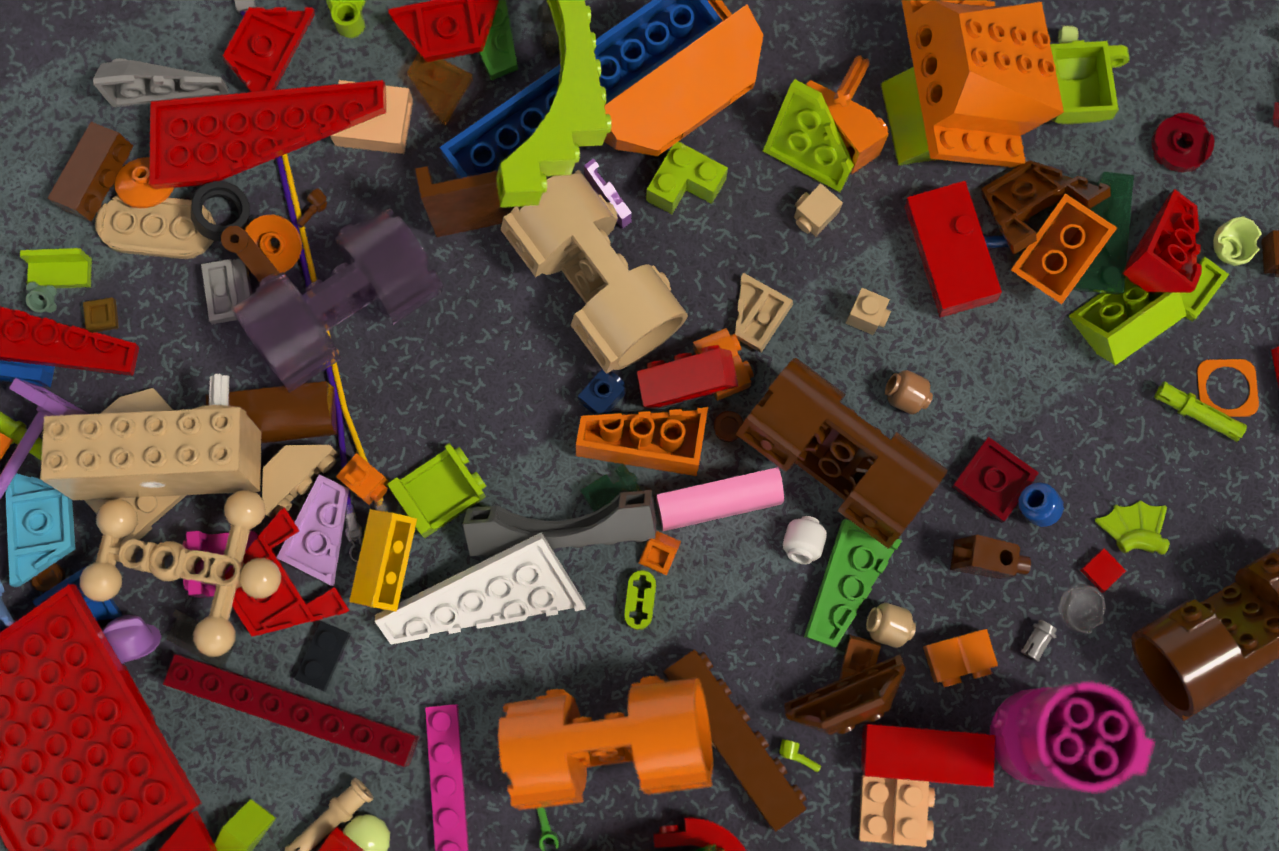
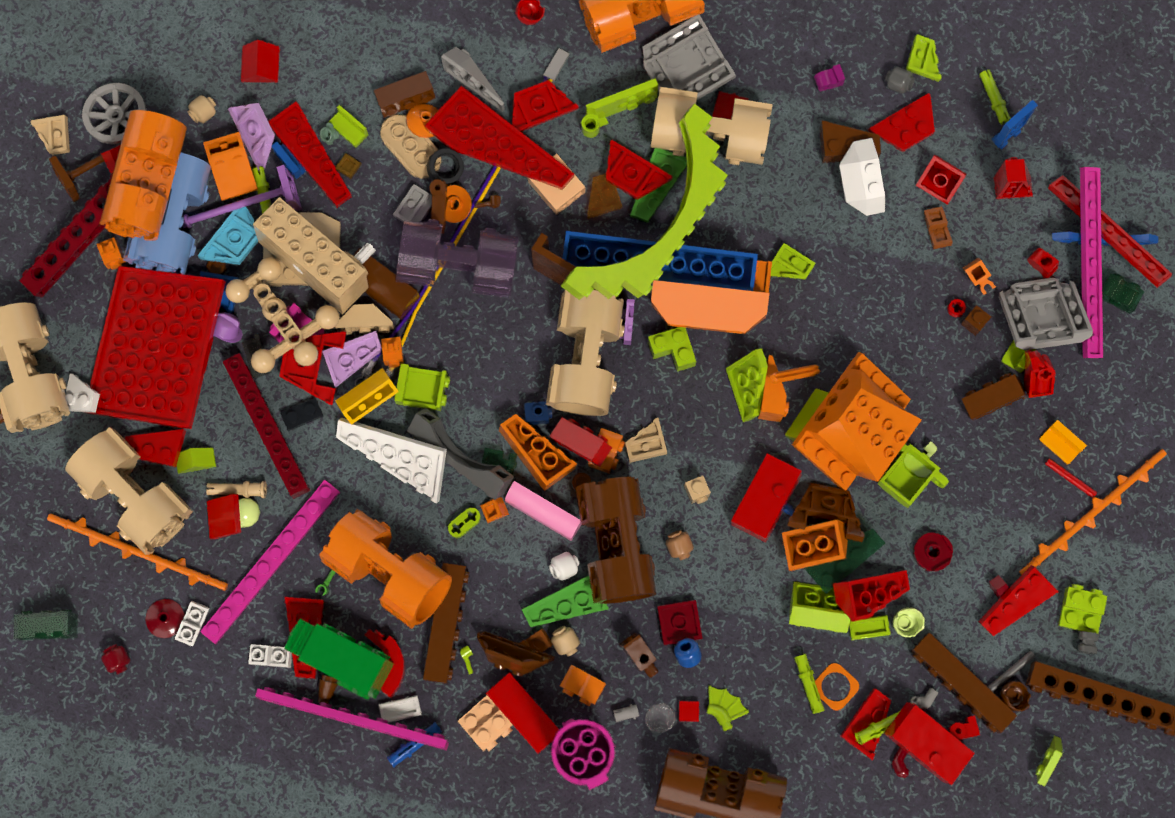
camera: 45 degrees right, 0 degrees up
(816, 210) = (721, 420): tan brick -> none

